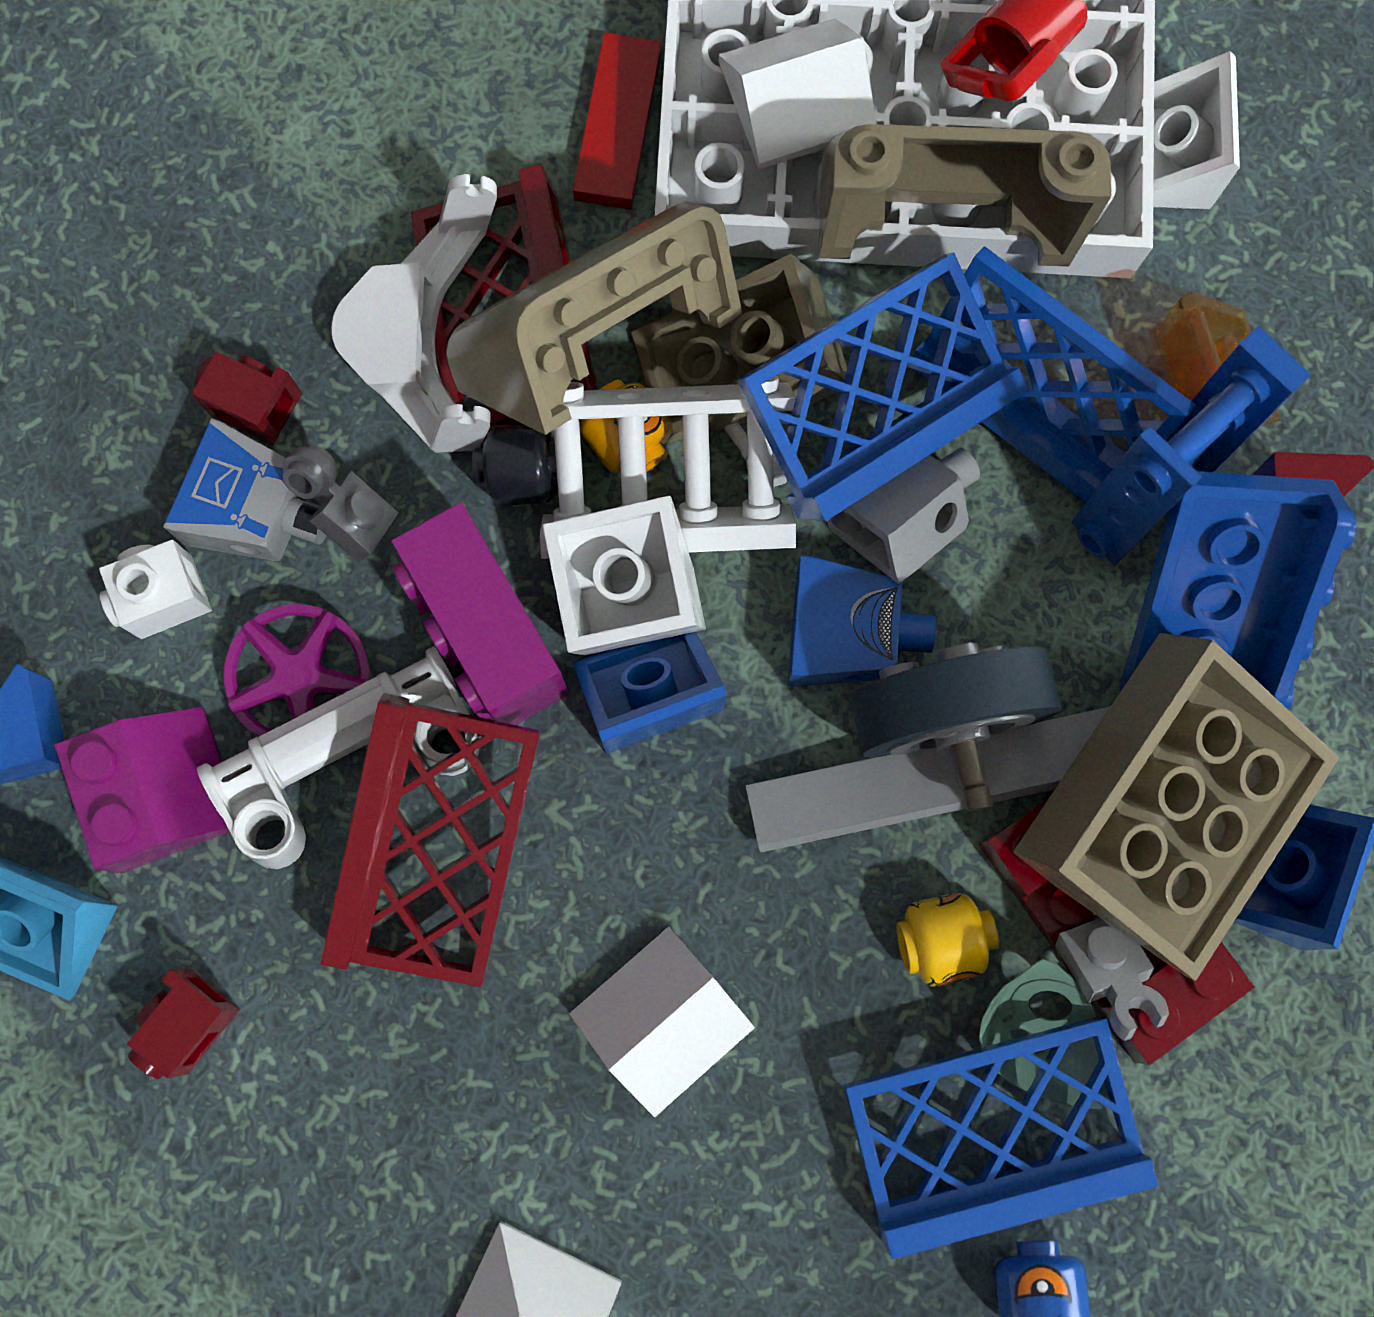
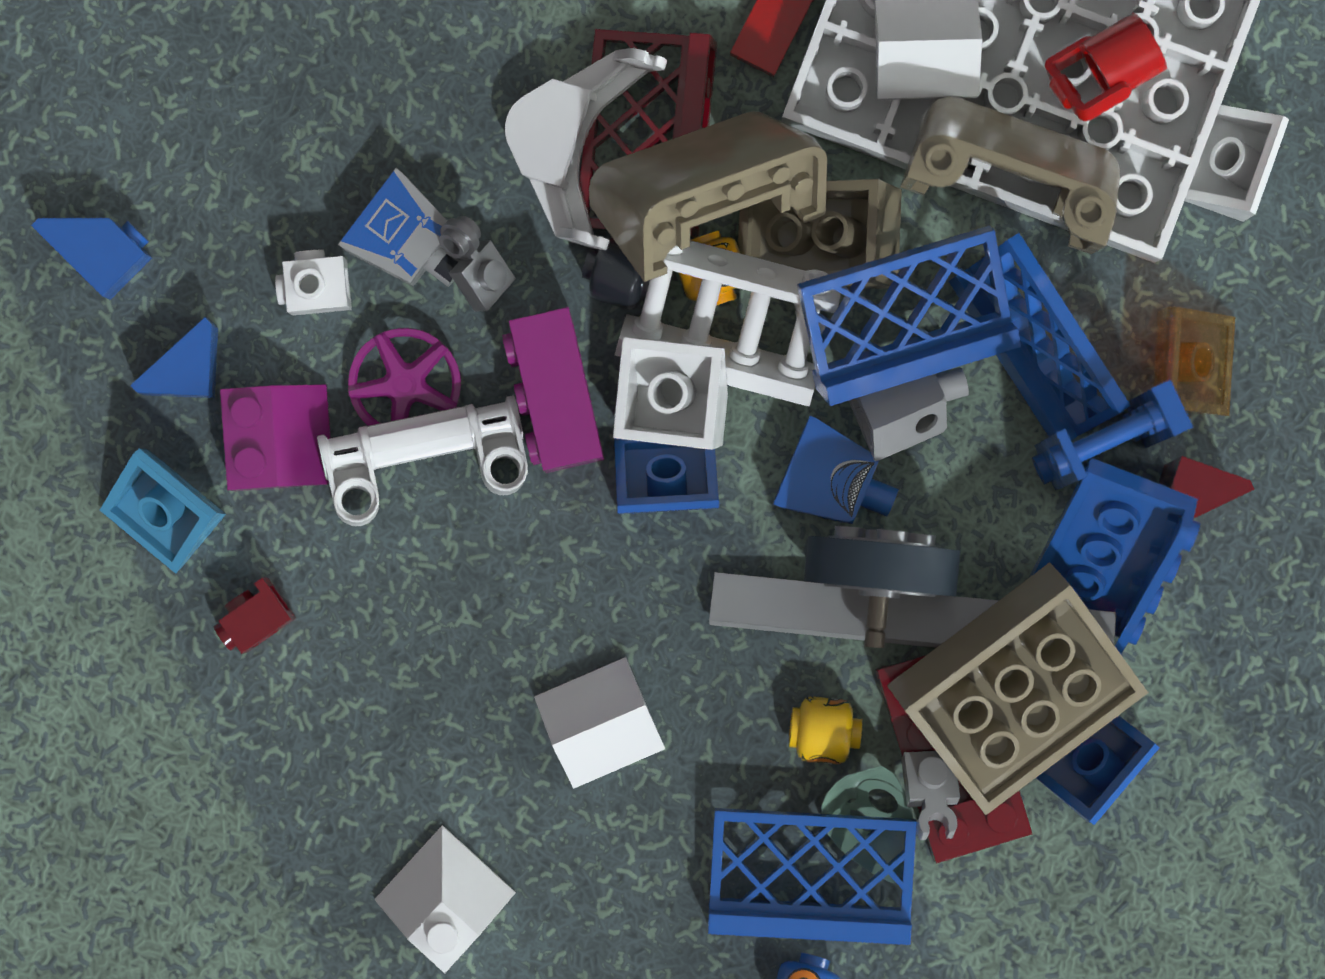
camera: 20 degrees right, 10 degrees up
(246, 395) = (424, 148): dark red brick -> none
(372, 833) = (433, 522): dark red fence -> none

